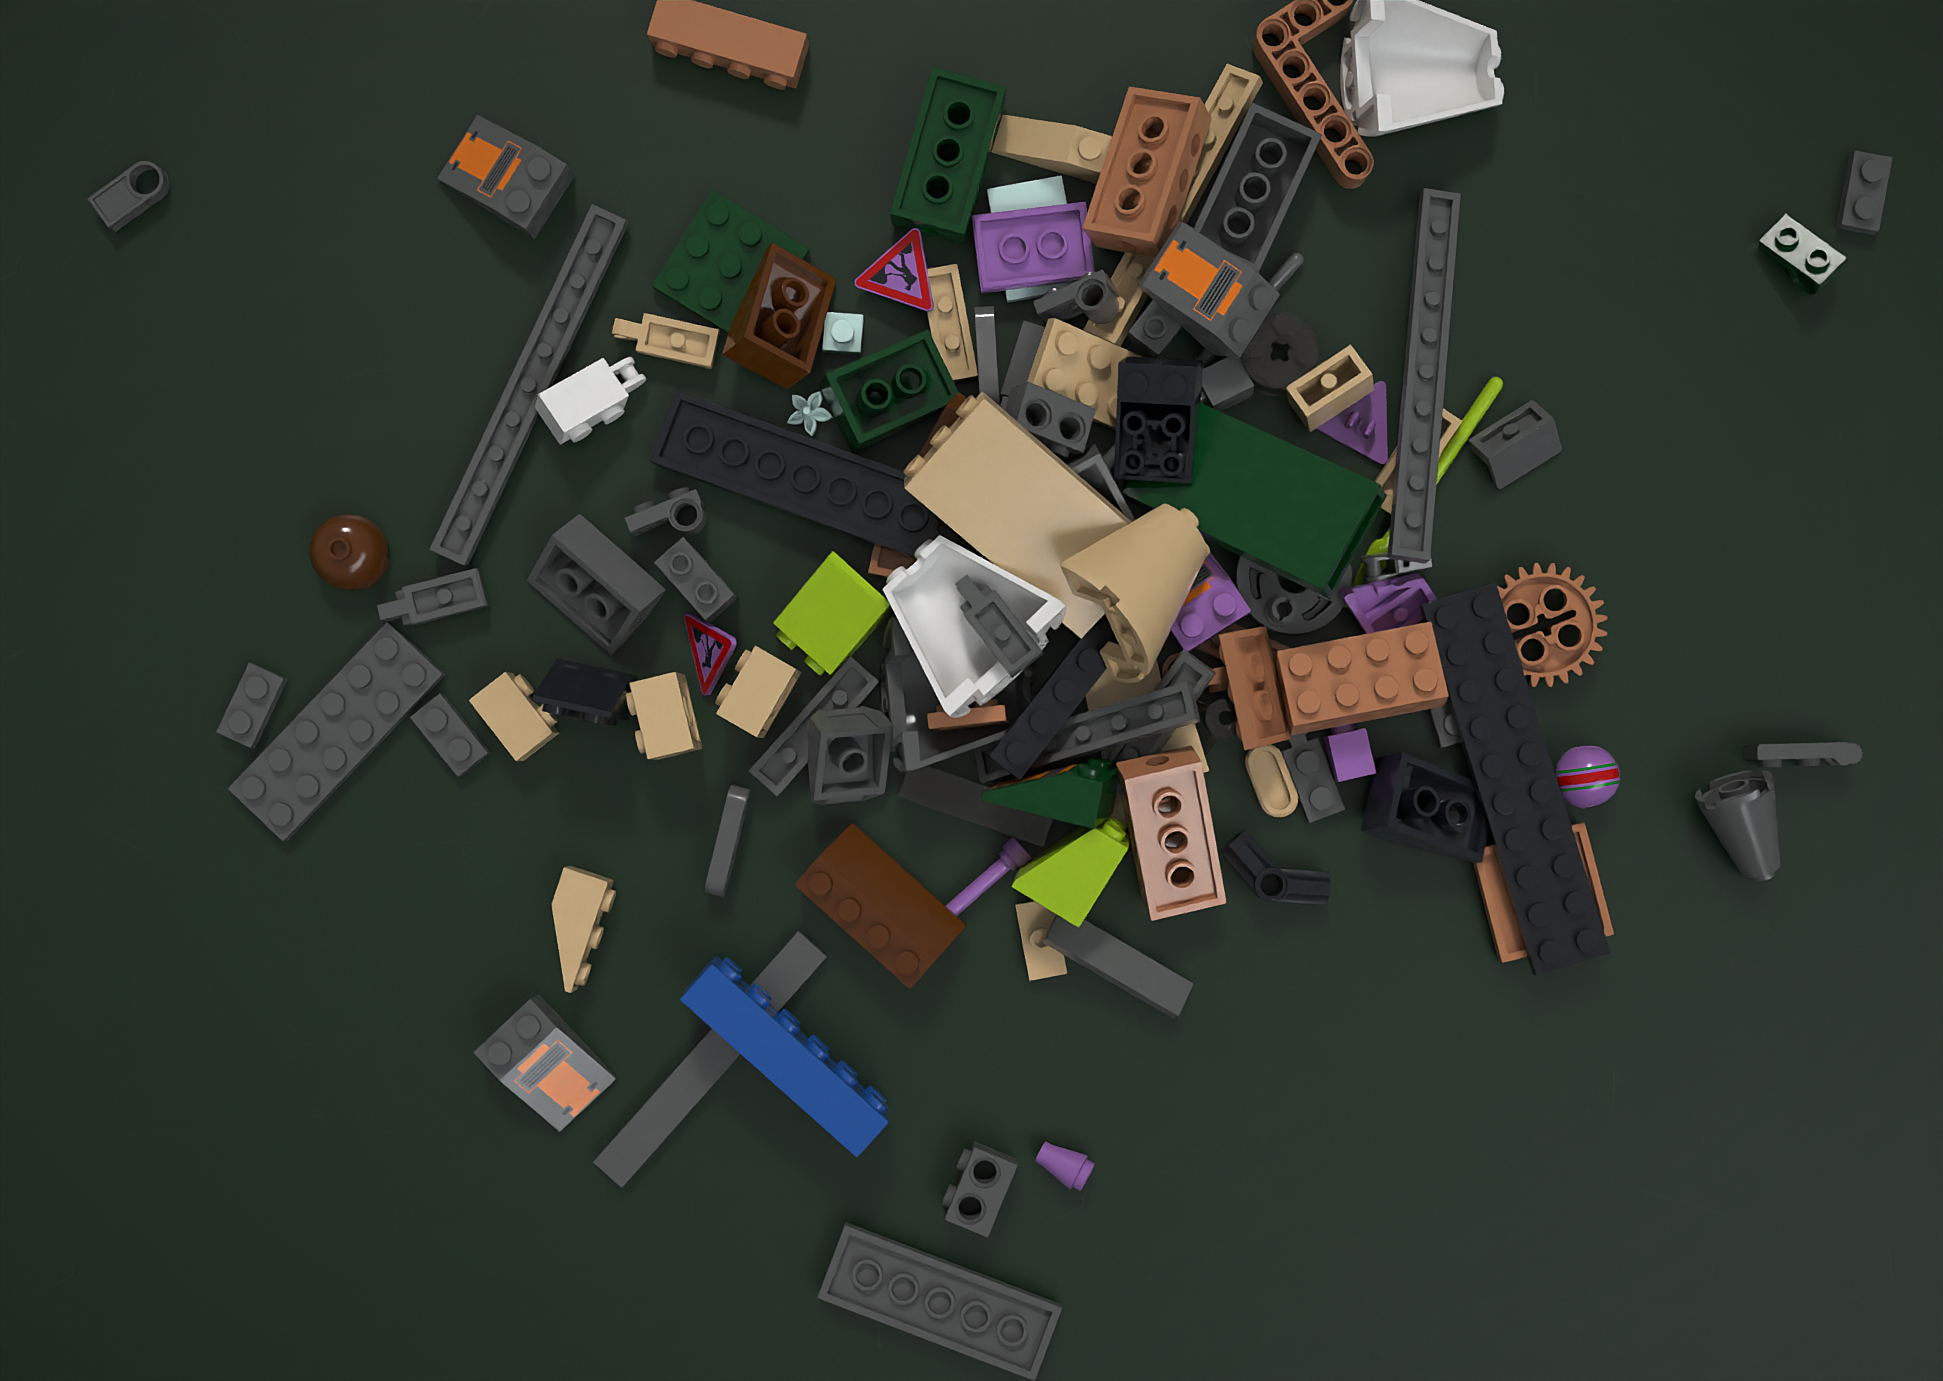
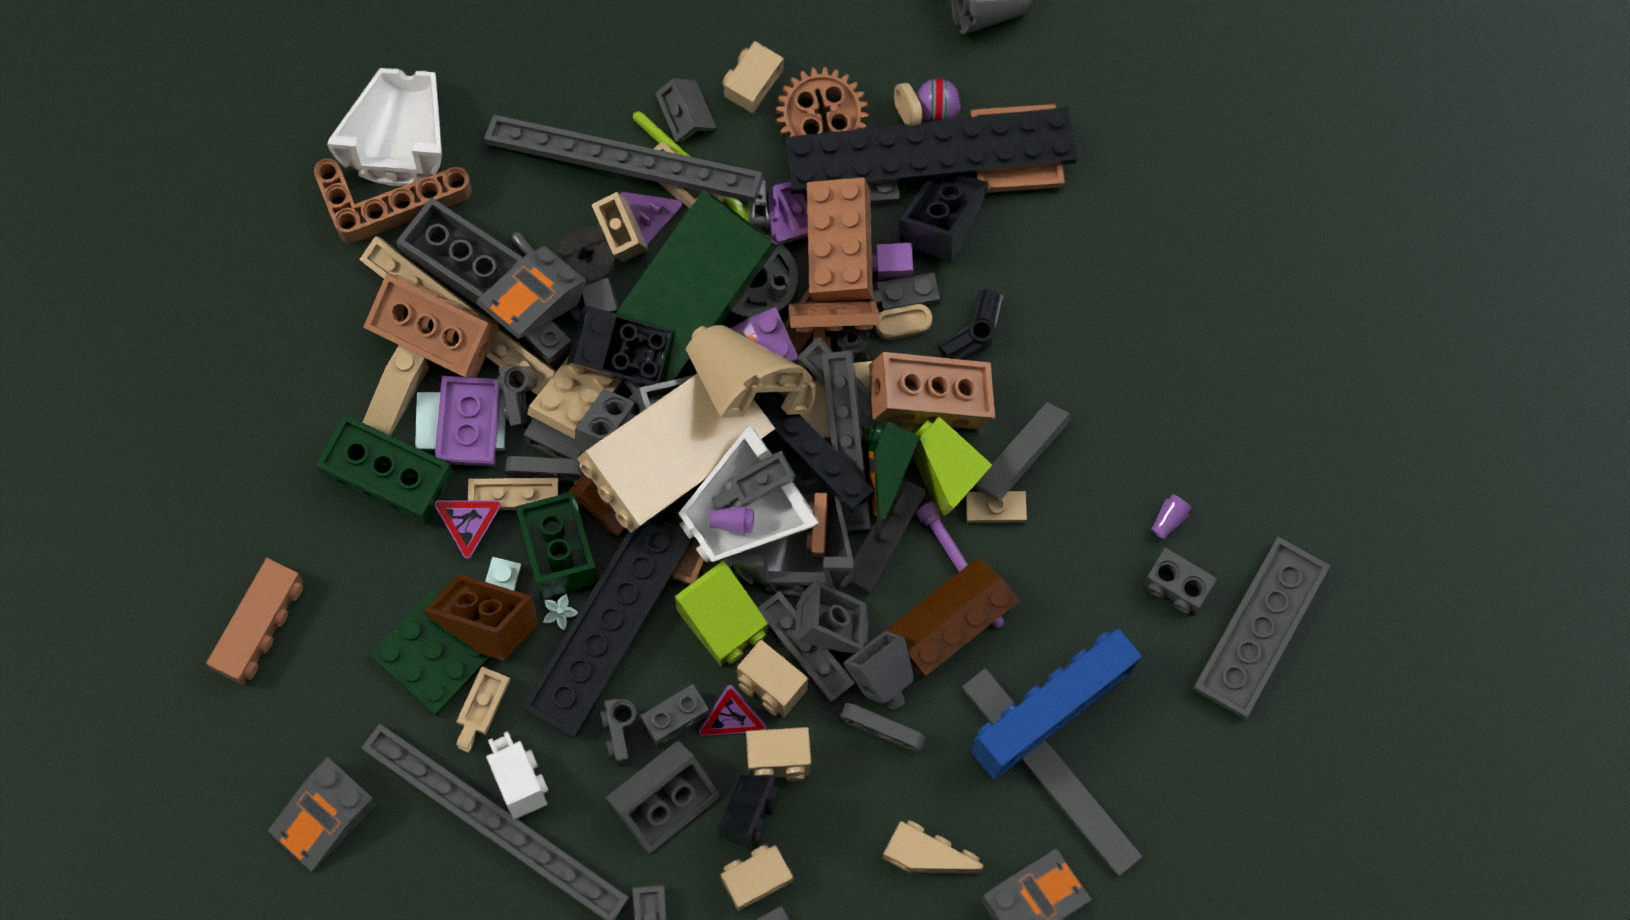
camera: 85 degrees left, 15 degrees down
(795, 828) = (882, 669): none -> dark grey torso
(943, 607) = (734, 520): none -> medium lavender cone
(1574, 737) = (908, 104): none -> tan tile
(1579, 523) = (753, 76): none -> tan brick

